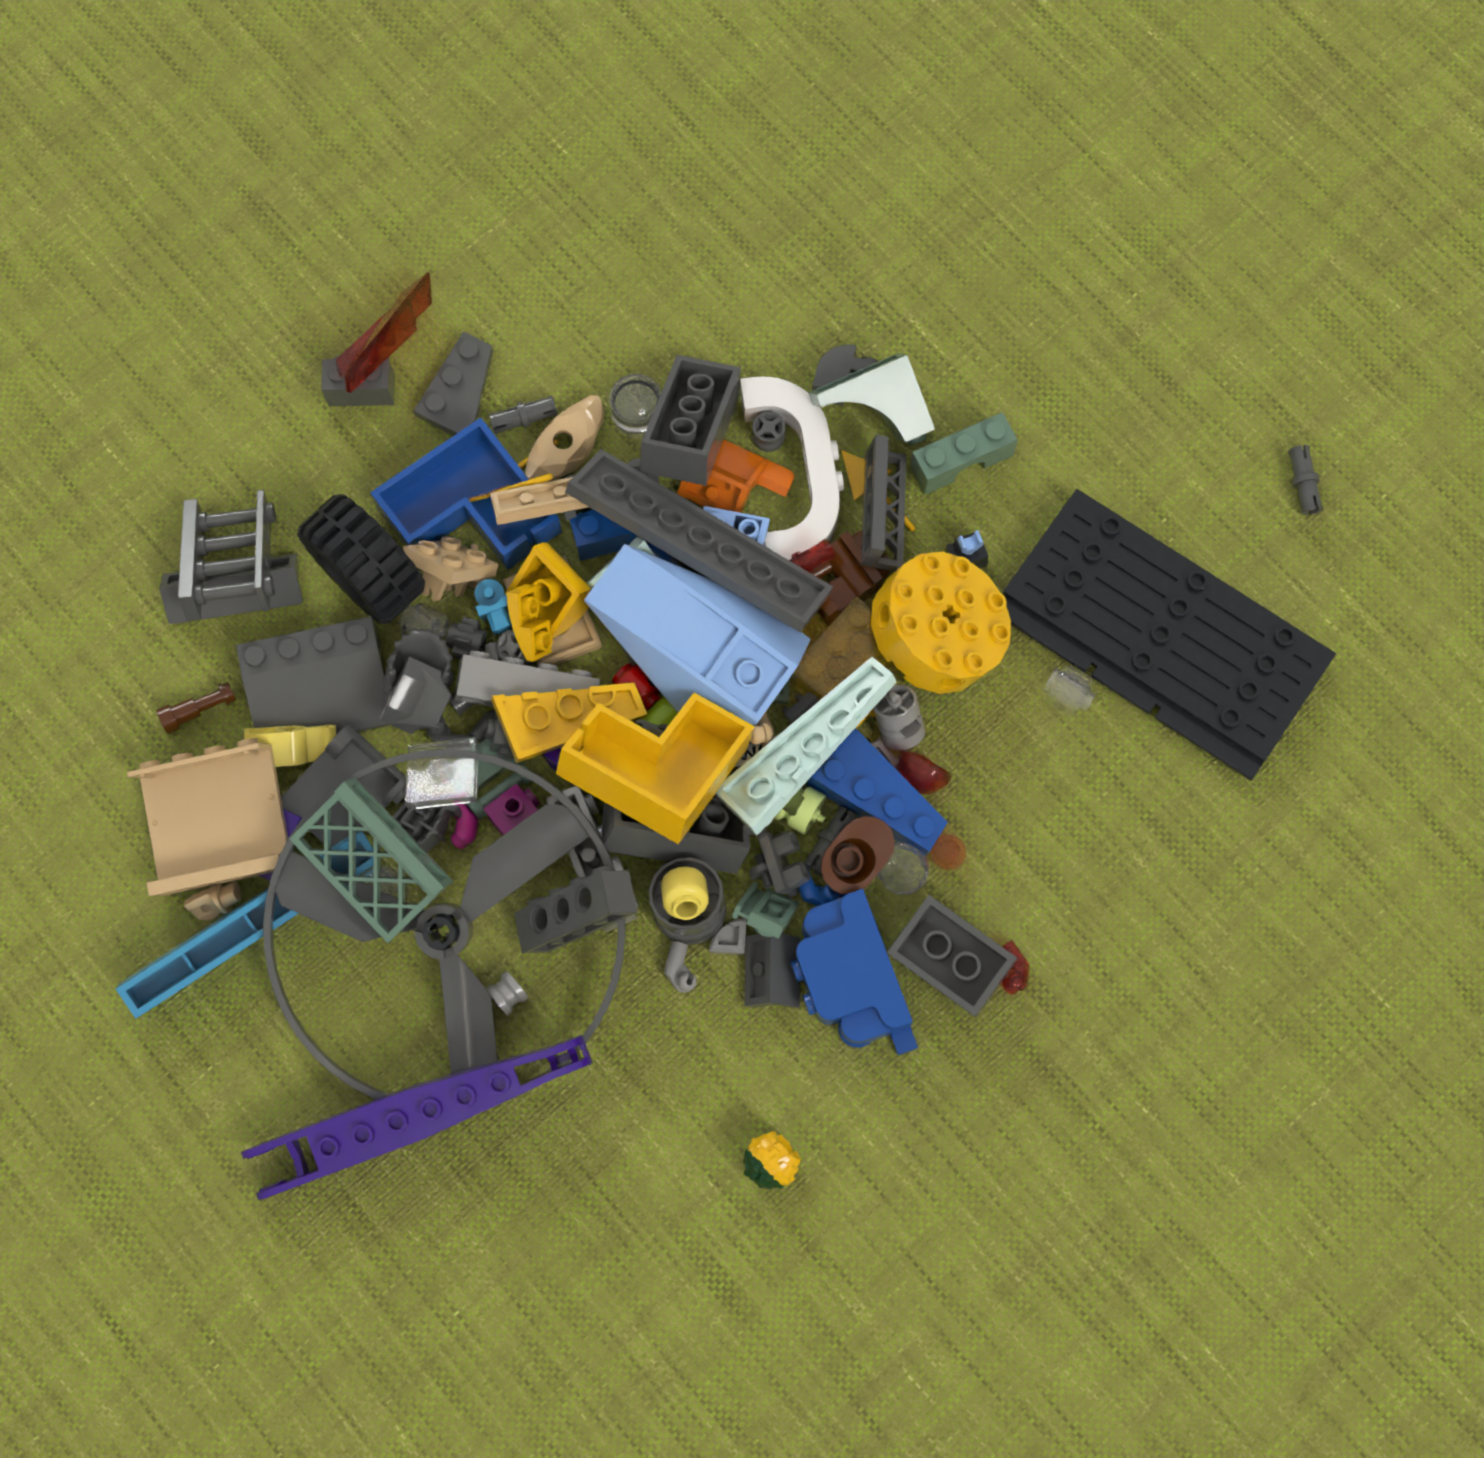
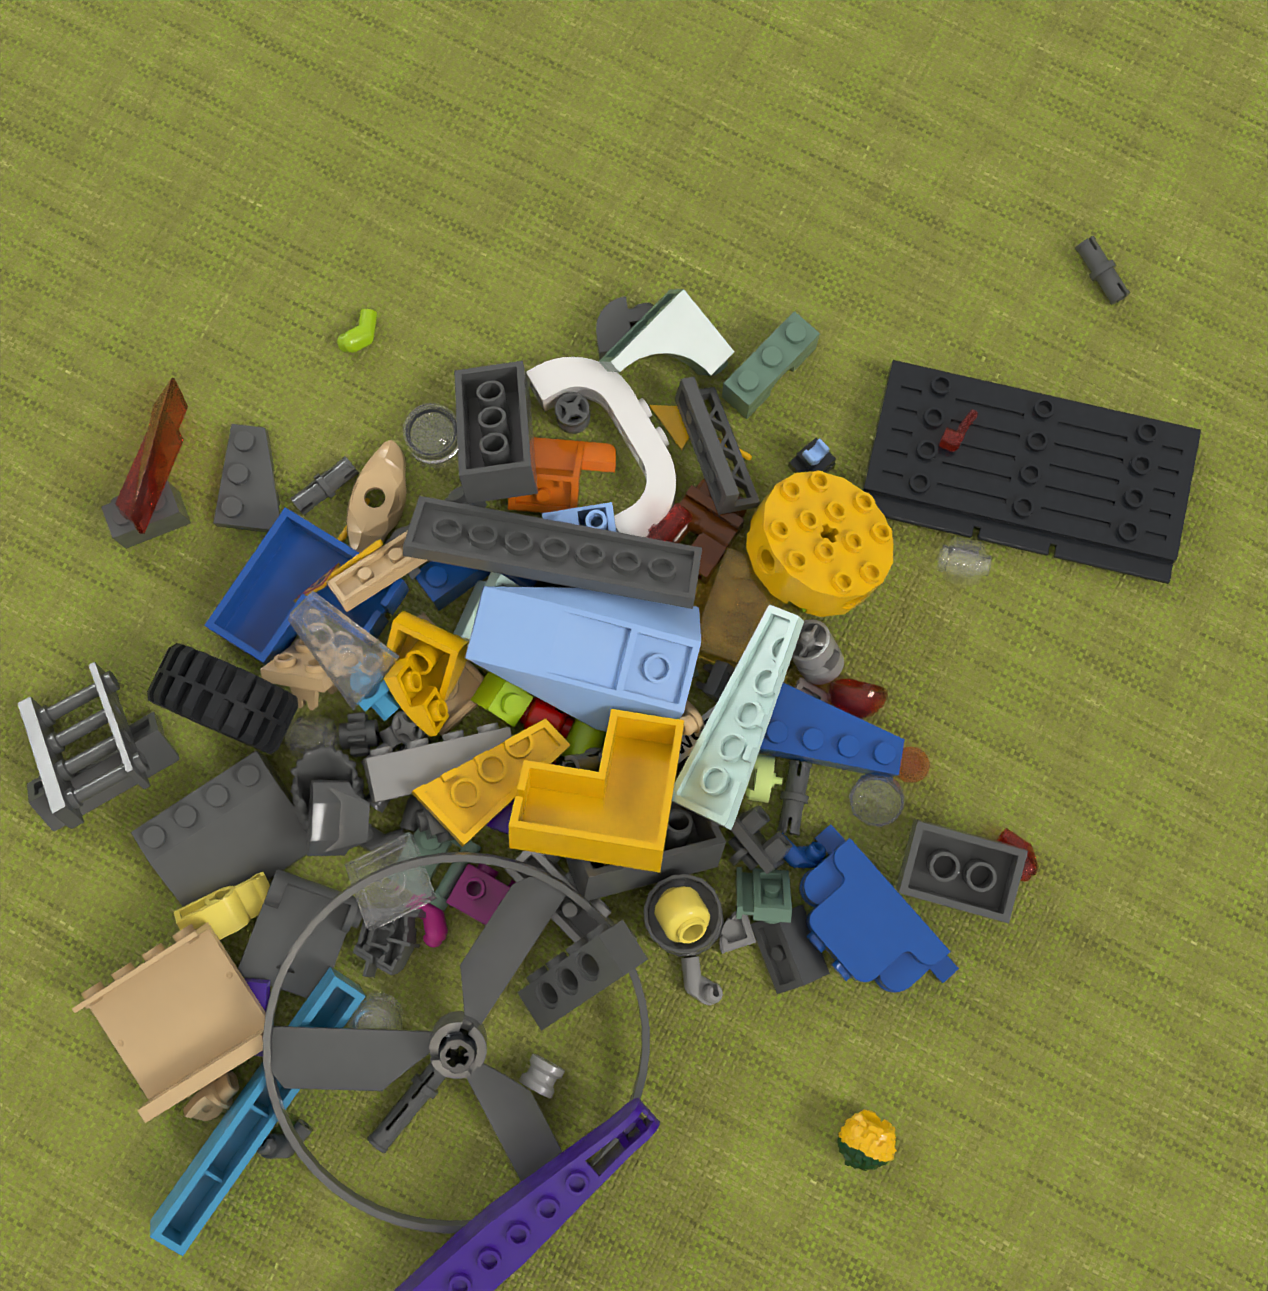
camera: 20 degrees left, 5 degrees up
(174, 716) = (95, 927): reddish brown piece -> none
(255, 965) = (278, 1147): none -> dark grey arm
(370, 979) = (401, 1114): none -> dark grey pin
(392, 838) = (367, 977): sand green fence -> none
(480, 553) = (342, 648): none -> clear wing
(603, 654) = (502, 699): none -> lime brick
(607, 296) = (360, 336): none -> lime arm
(857, 854) = (830, 806): reddish brown piece -> none
(1101, 577) = (951, 438): none -> clear red hand

